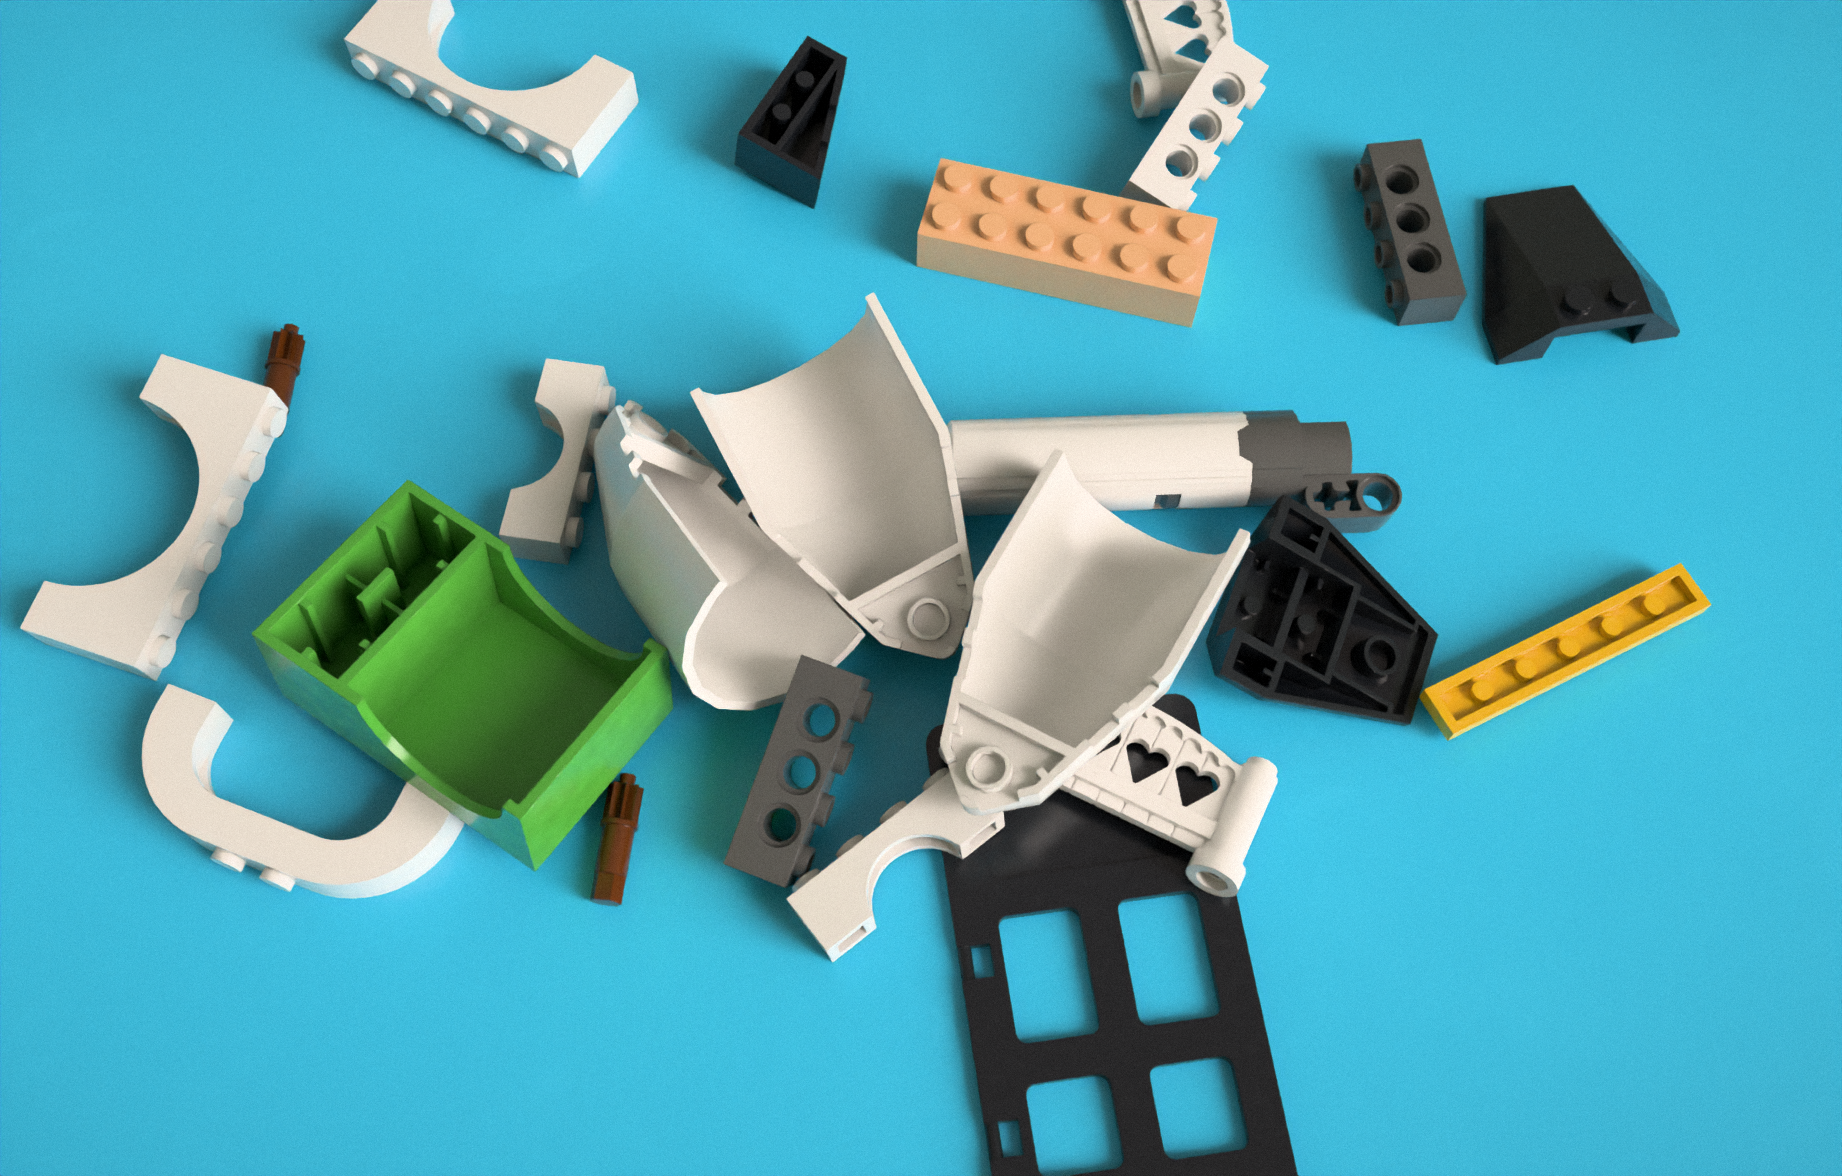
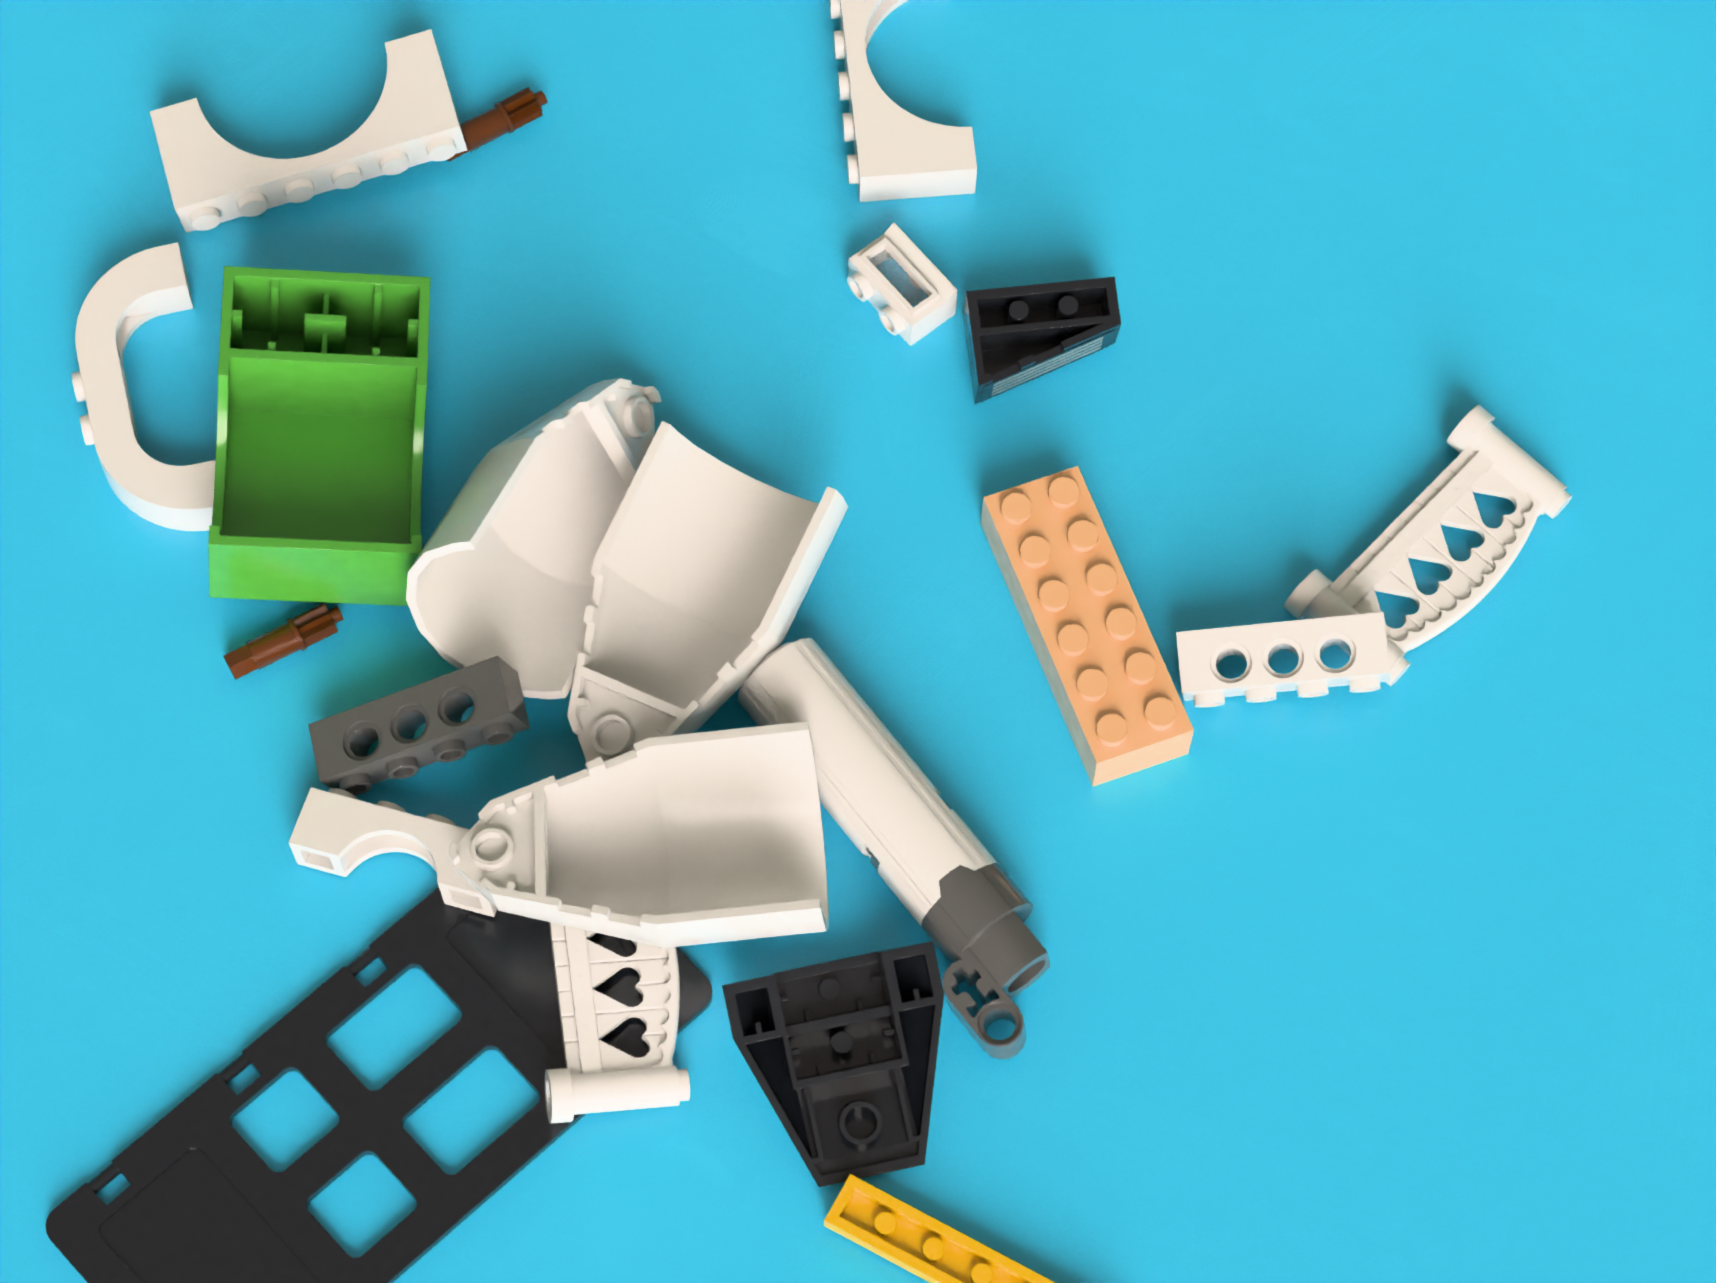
camera: 55 degrees right, 0 degrees up
(544, 516) = (513, 397): white arch -> none
(680, 186) = (902, 286): none -> white window
(1409, 233) = (1284, 968): dark grey brick -> none
(1560, 273) = (1400, 1075): black wedge -> none

